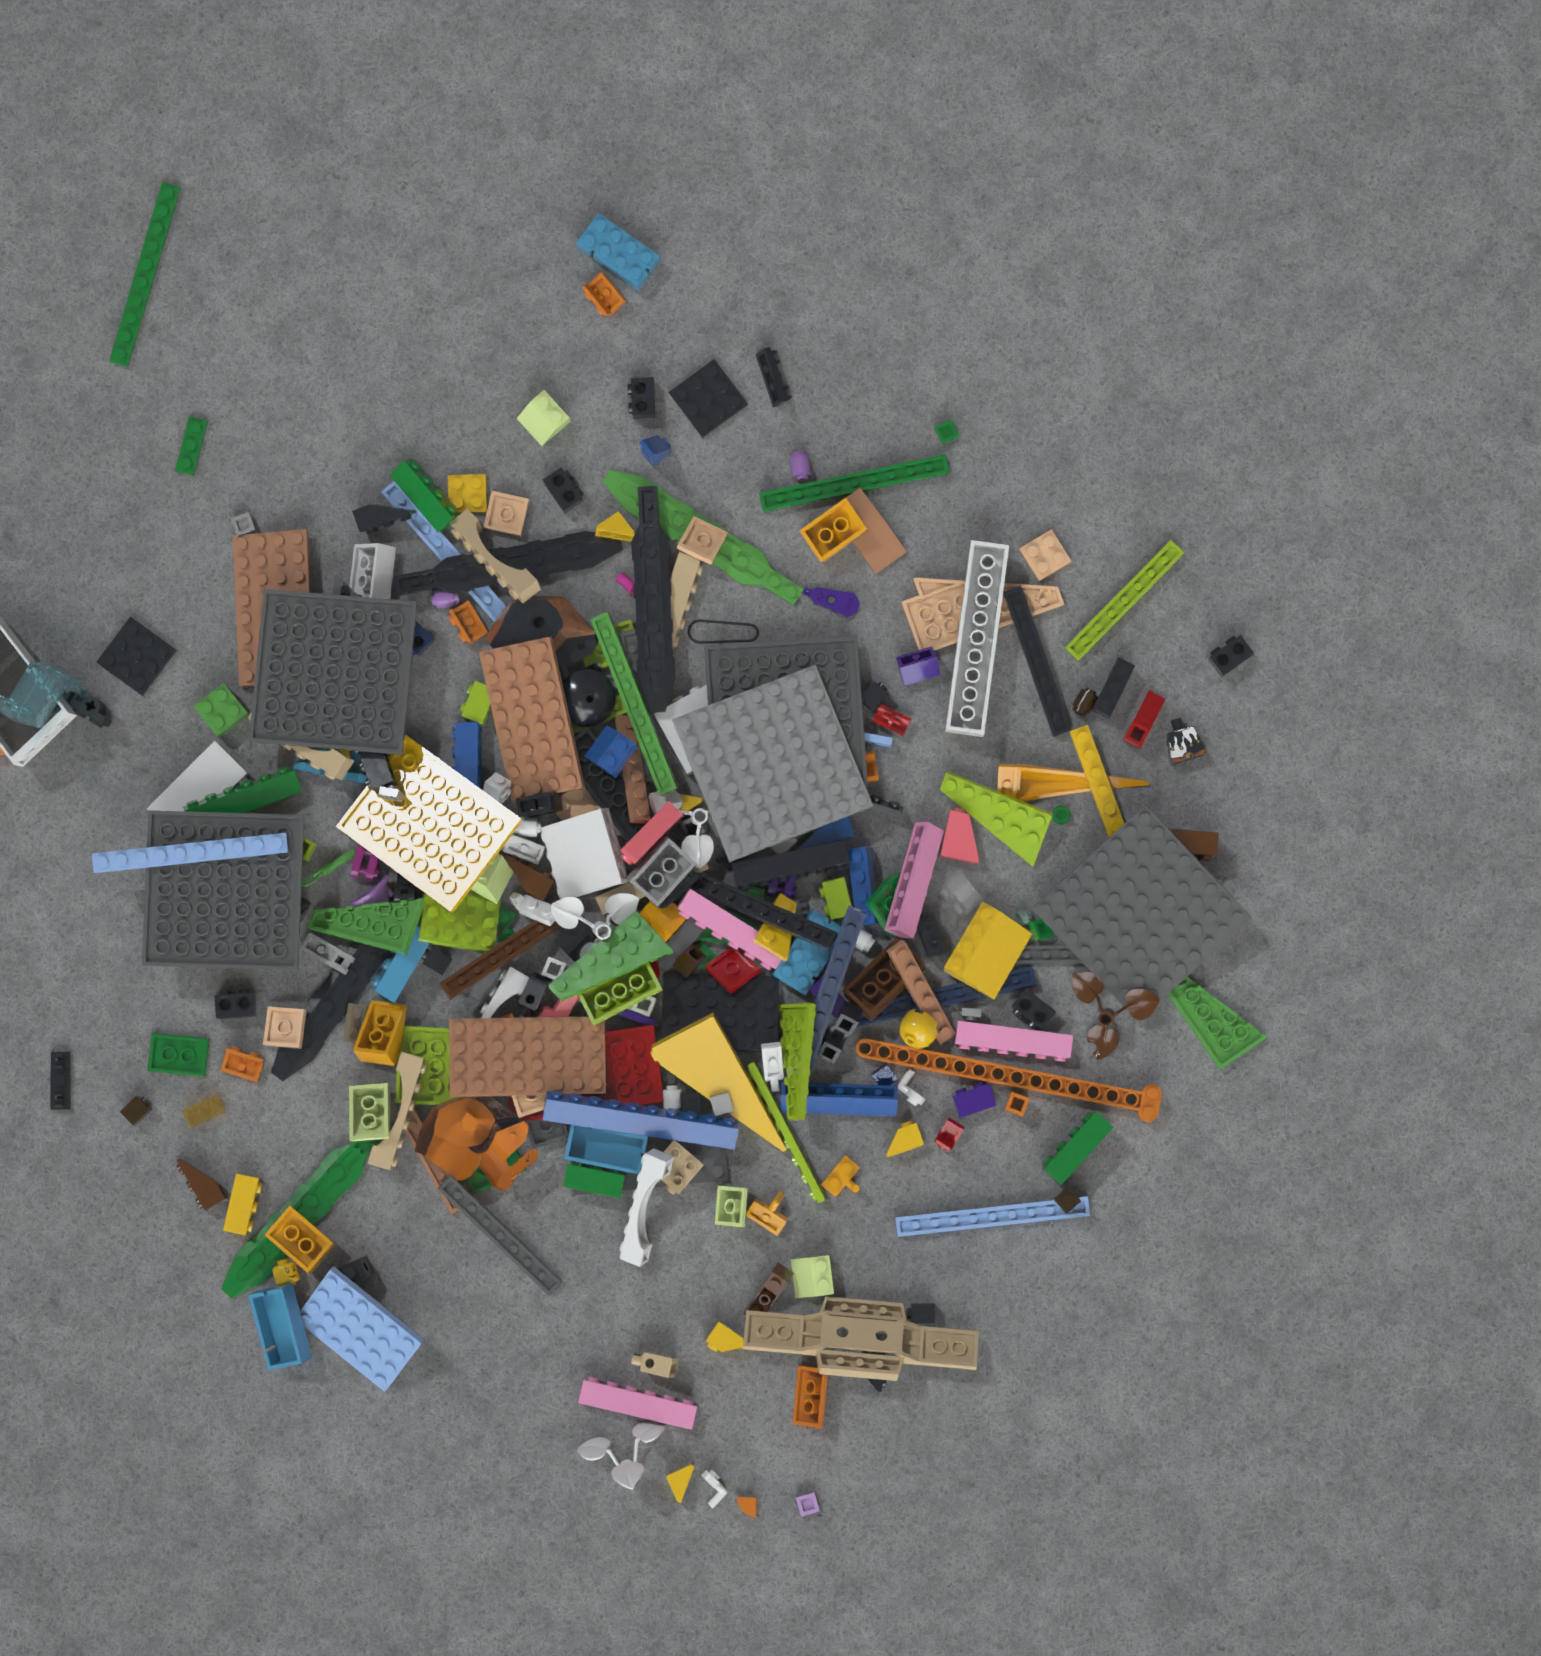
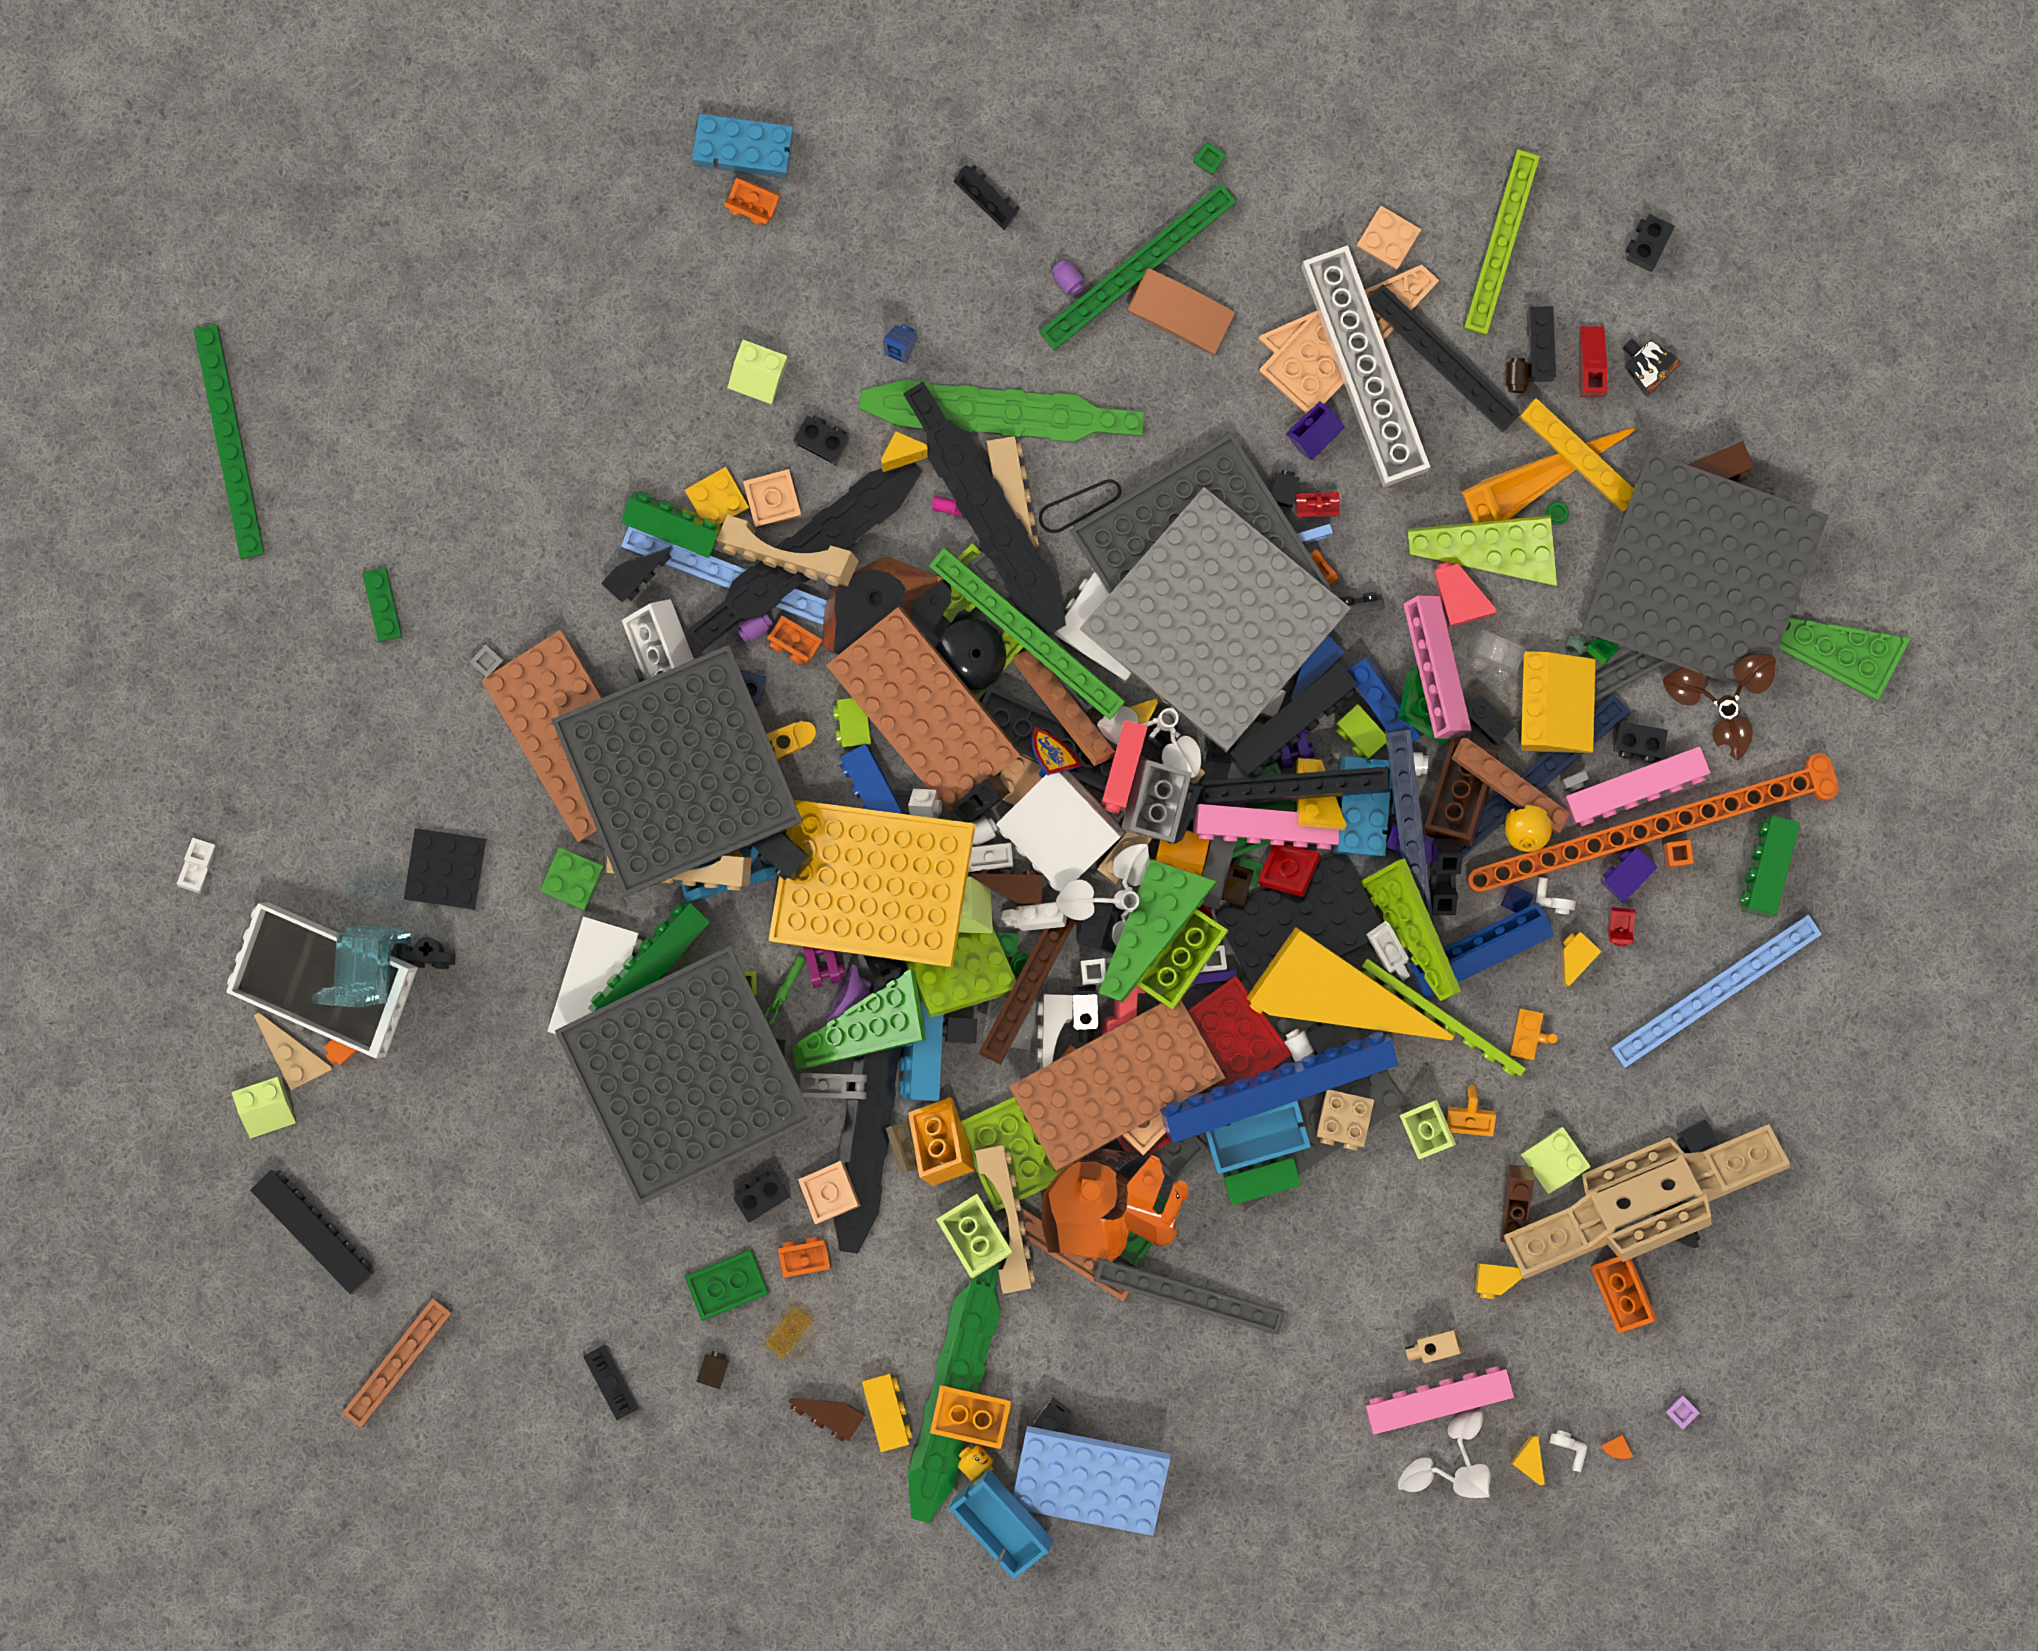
camera: 30 degrees left, 0 degrees up
(190, 853) = (626, 1053): light blue plate -> none
(391, 793) = (813, 871): light grey plate -> none
(436, 691) = (800, 735): none -> yellow piece
(605, 798) = (1052, 754): none -> shield
(611, 751) = (1030, 698): blue slope -> none
(636, 1246) = (1345, 1229): white arch -> none
(646, 398) = (860, 291): black brick -> none
(702, 540) = (1005, 415): light nougat plate -> none
(708, 398) = (927, 257): black plate -> none
(721, 1103) = (1358, 1022): light grey tile -> none
(833, 530) = (1145, 328): light orange slope -> none
(840, 600) = (1191, 403): dark purple piece -> none
(1066, 1200) = (1789, 929): dark brown brick -> none

